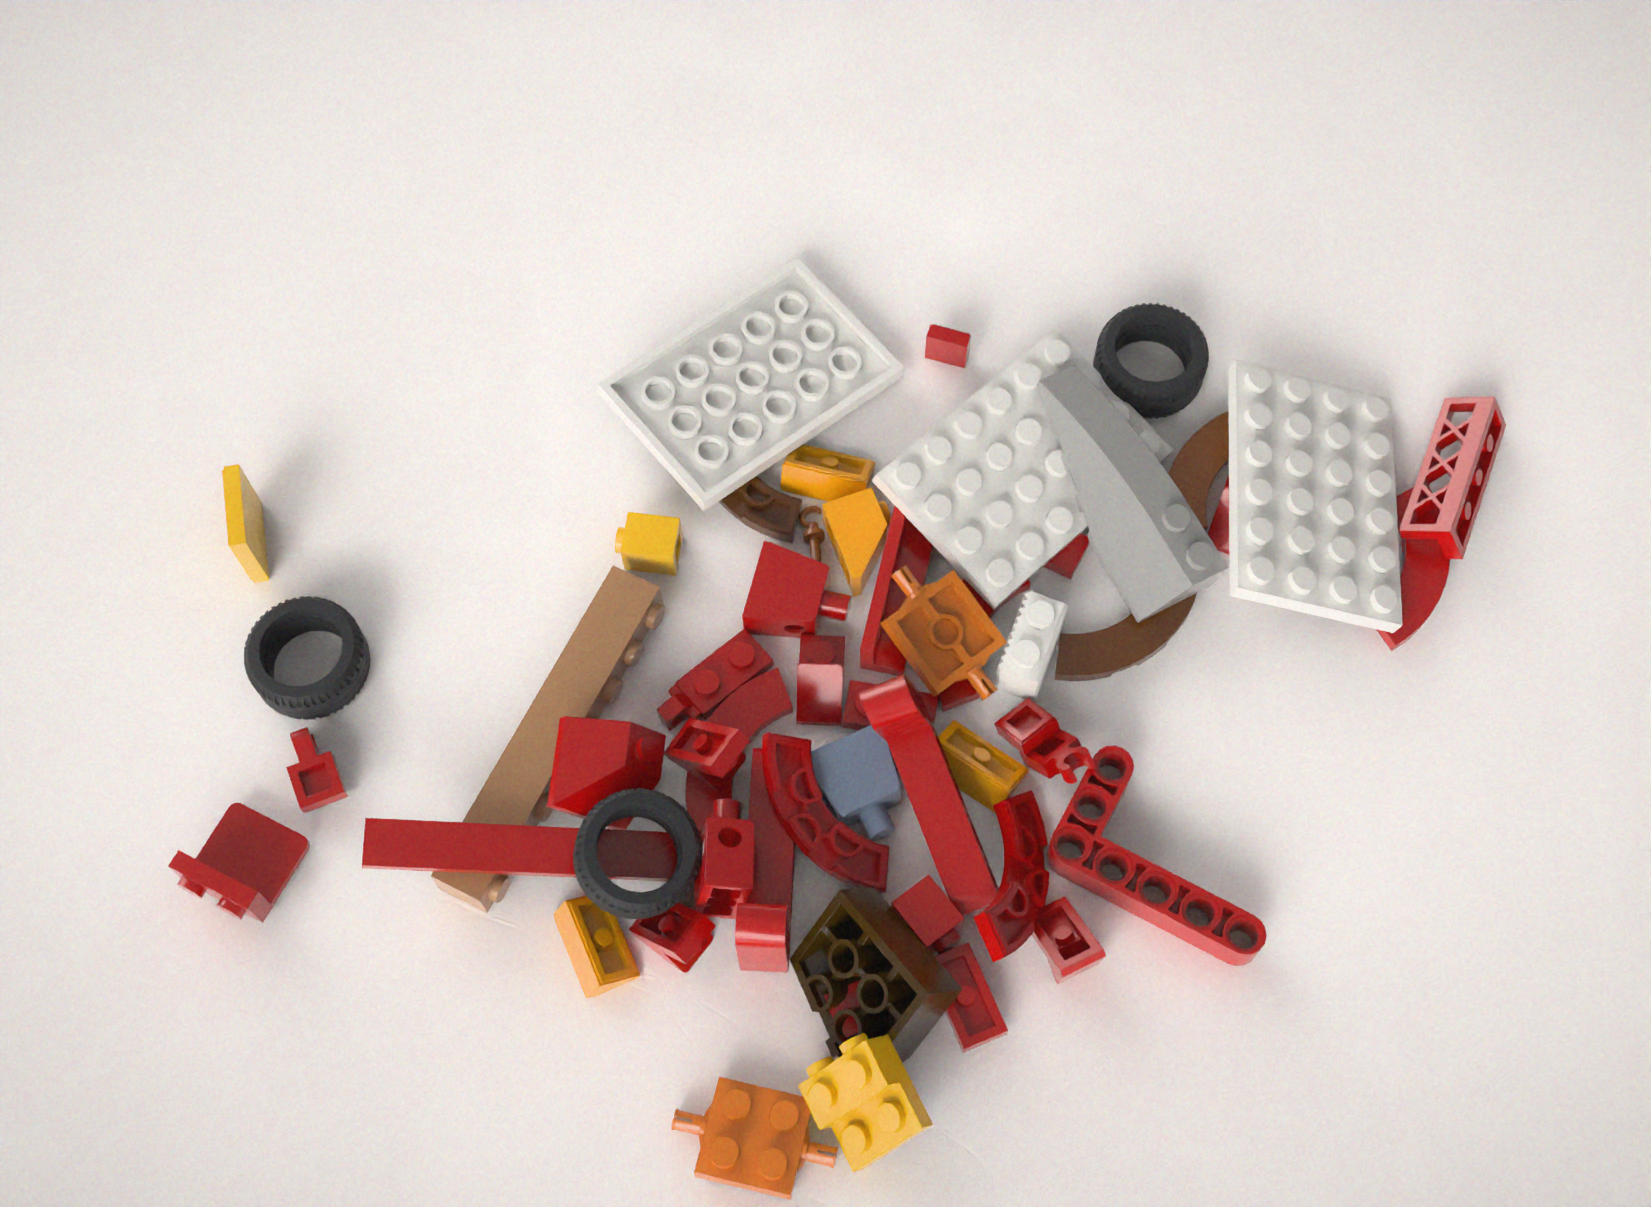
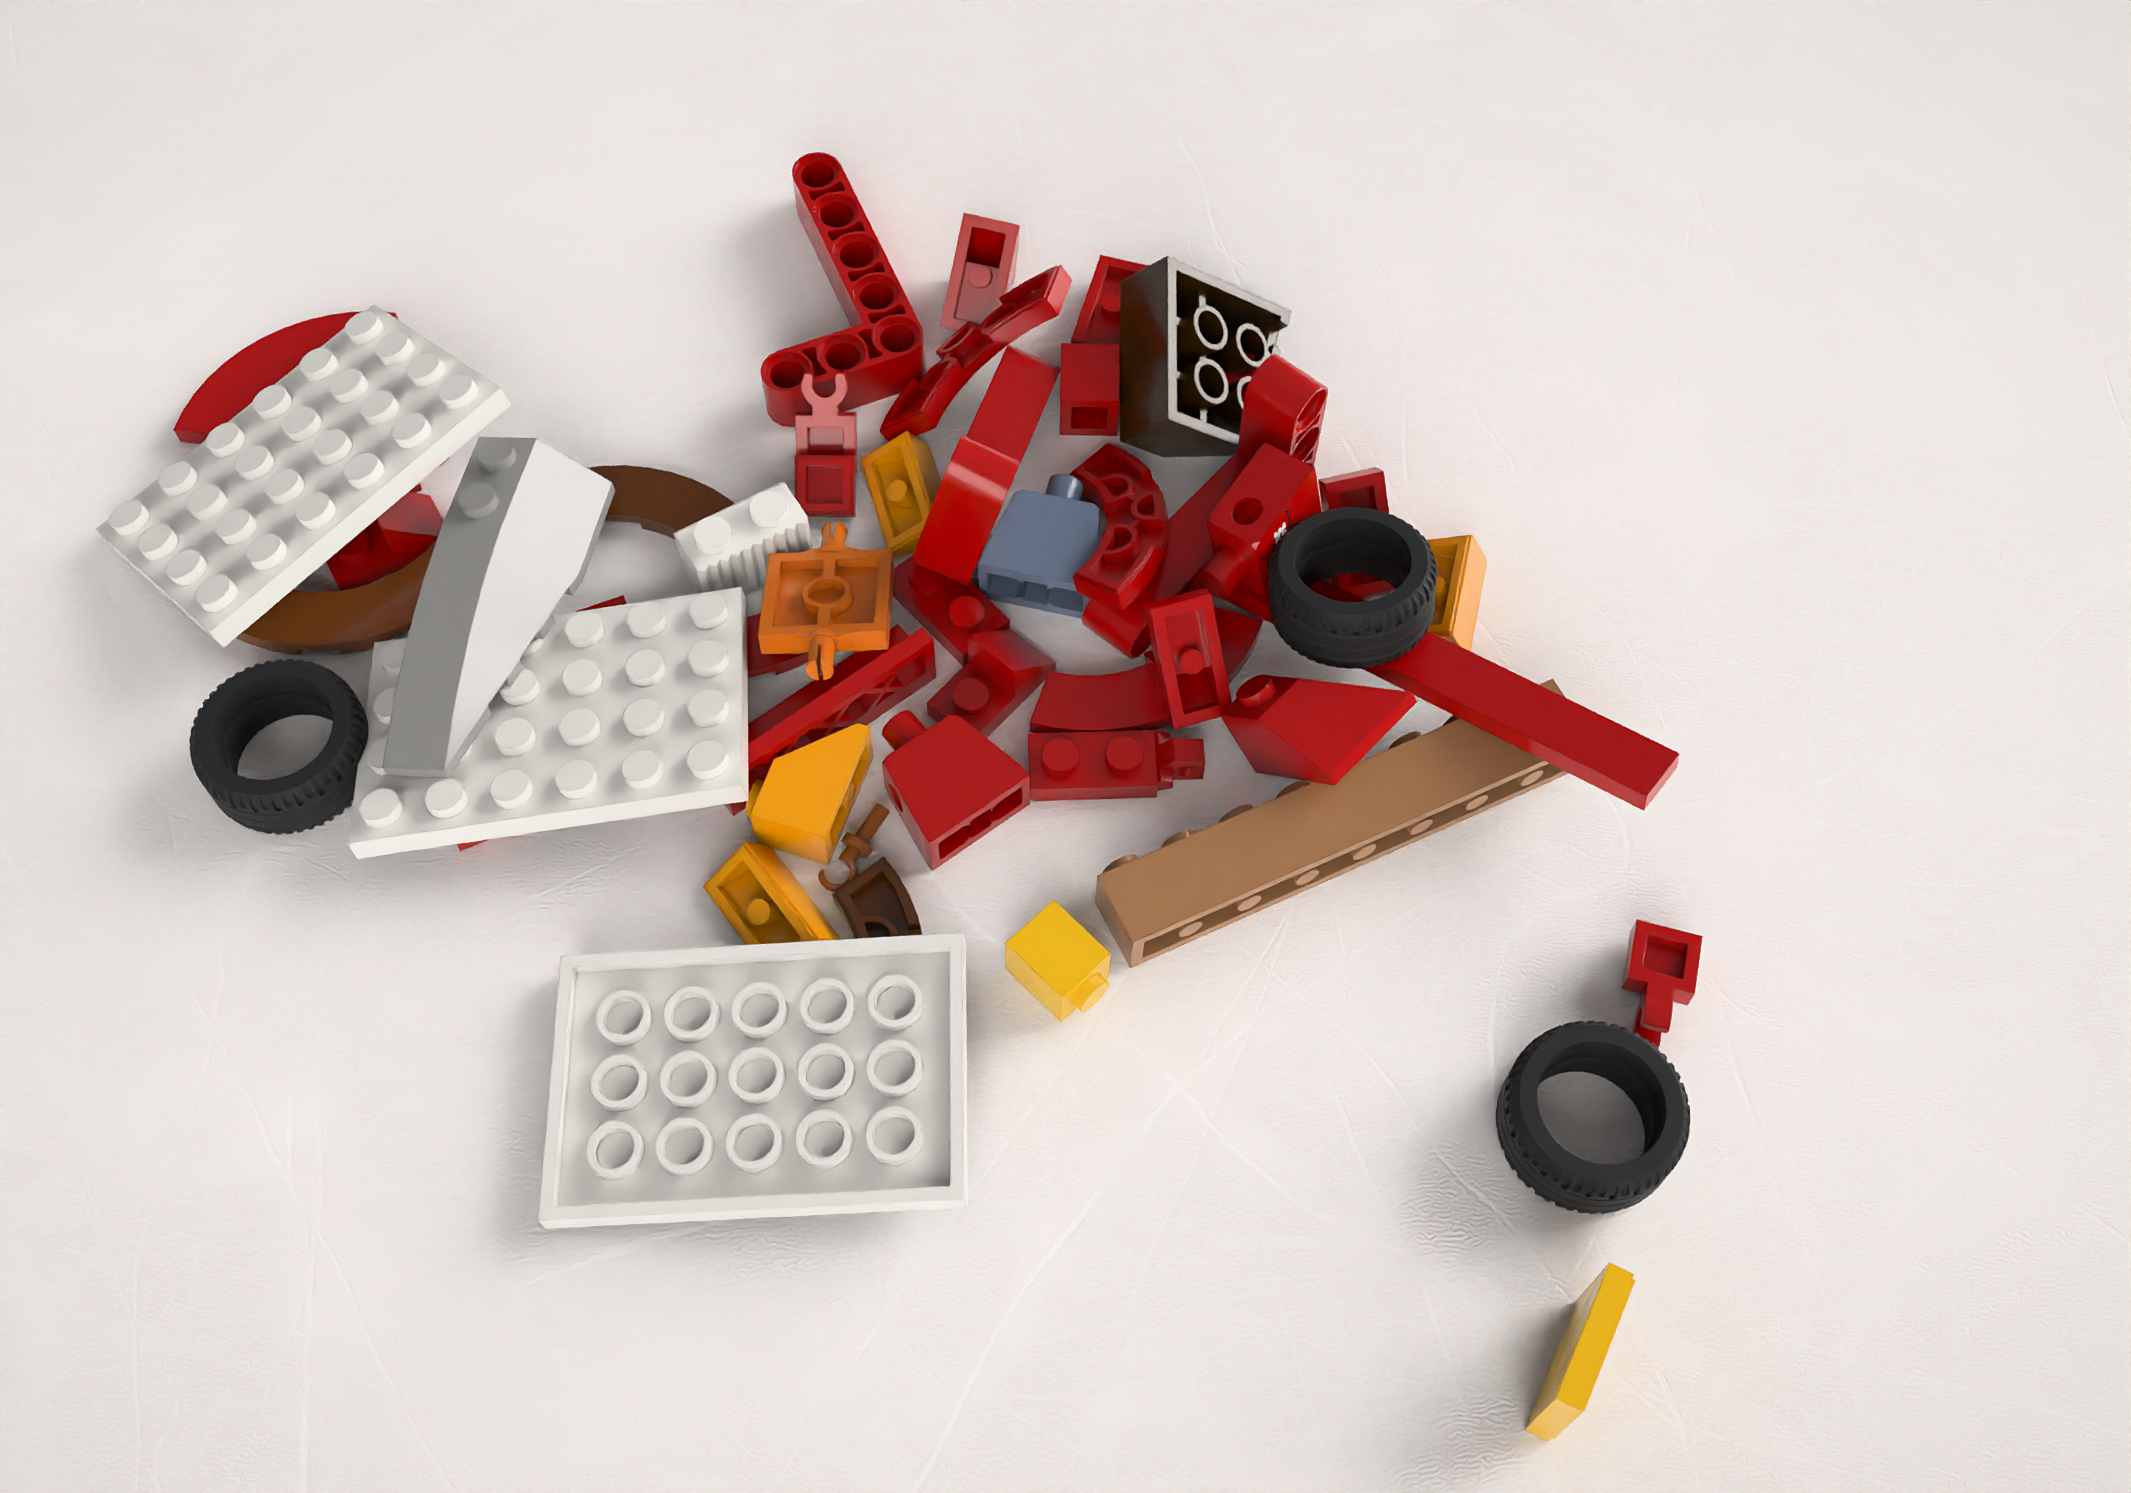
camera: 145 degrees left, 5 degrees down
(243, 863) = (1811, 923): red bracket -> none
(754, 1138) = (1408, 338): orange plate -> none
(865, 1099) = (1284, 276): yellow plate -> none
(947, 345) = (481, 948): tile -> none
(1468, 479) = (129, 387): fence -> none

